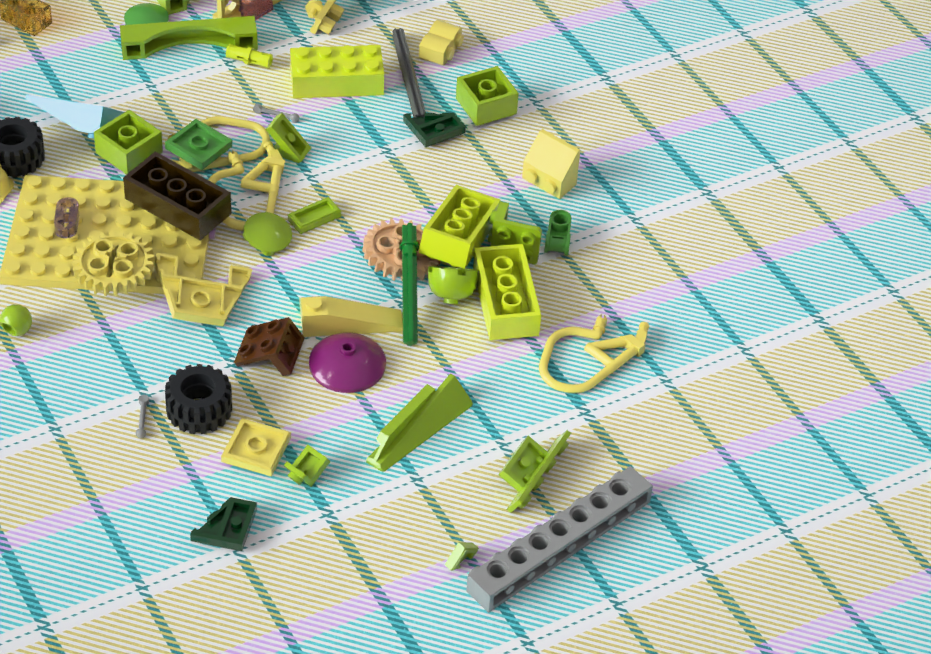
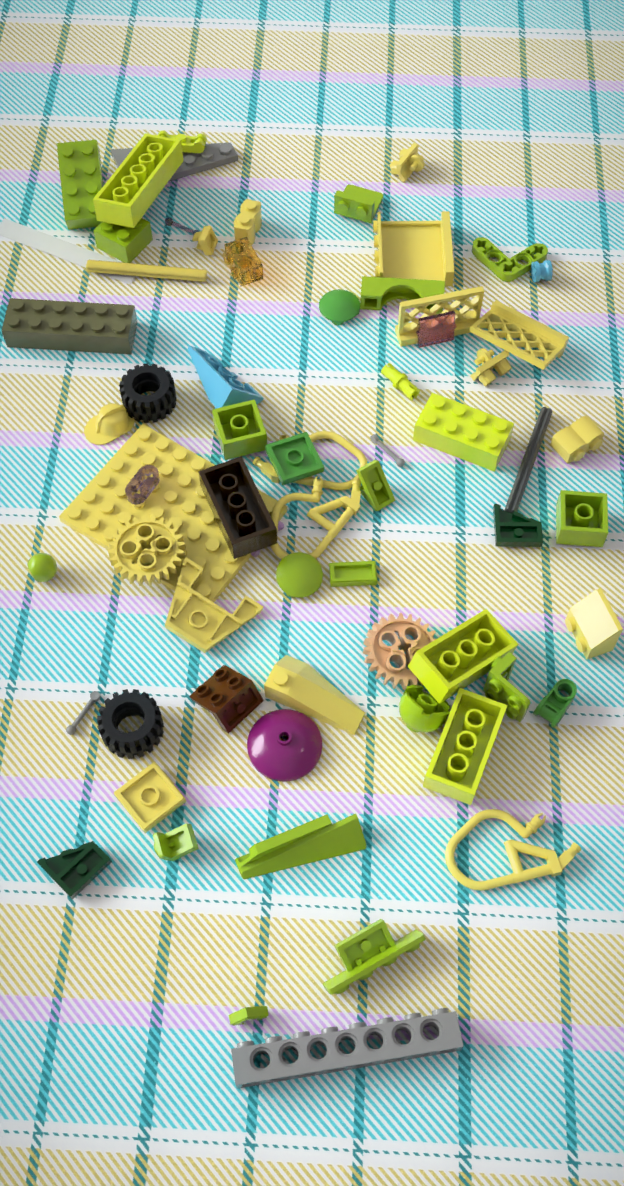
camera: 35 degrees right, 15 degrees up
(143, 40) = (321, 328): lime arch -> none
(409, 283) = (381, 694): green axle -> none

